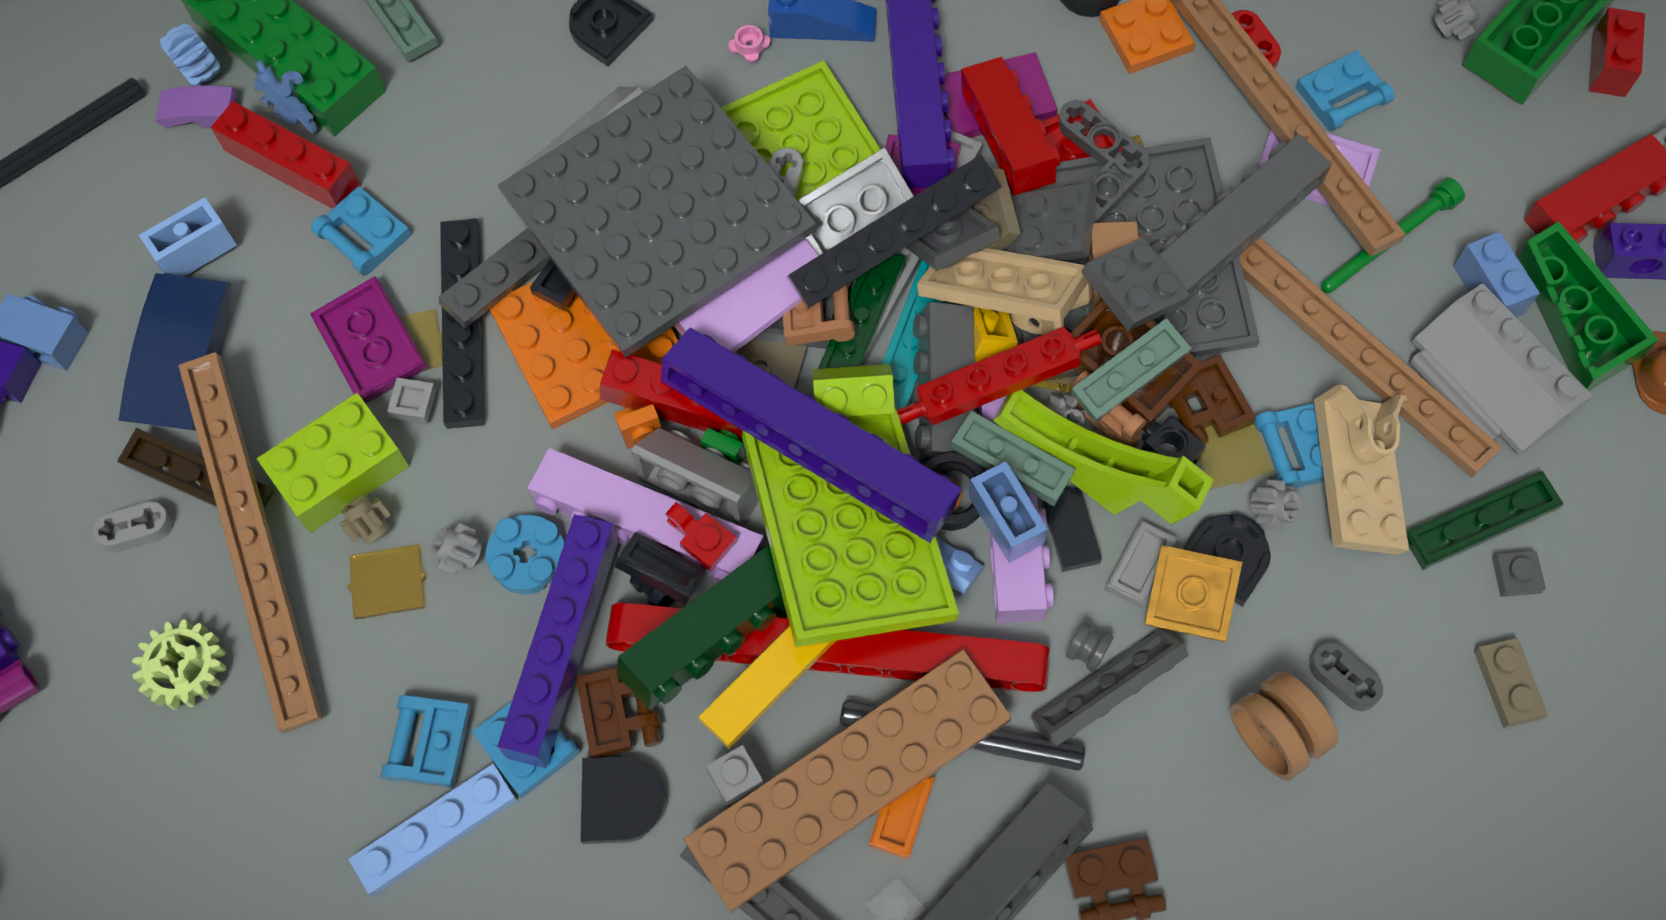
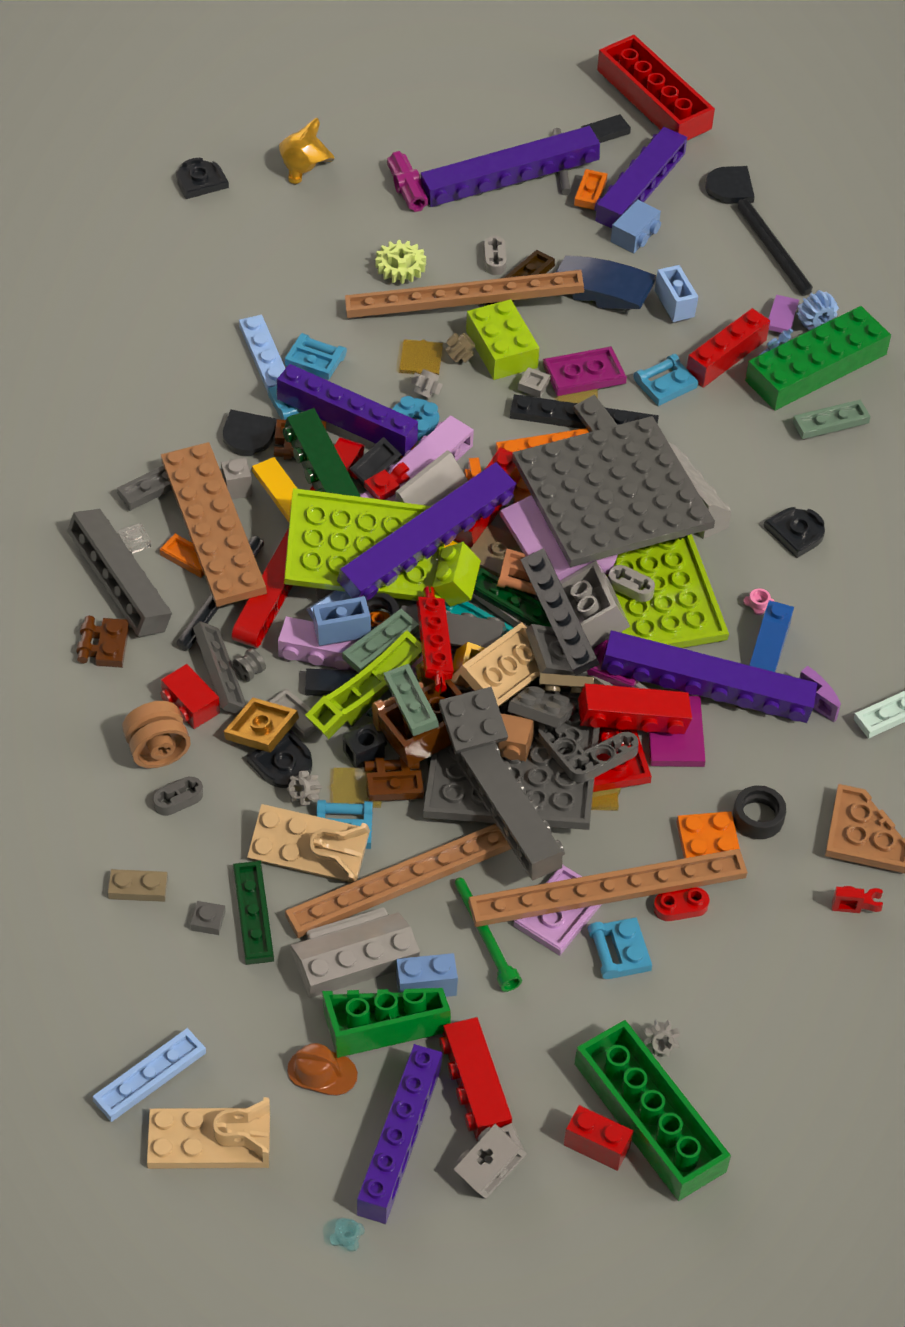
camera: 100 degrees right, 15 degrees down
(1177, 713) = (191, 695): none -> red brick

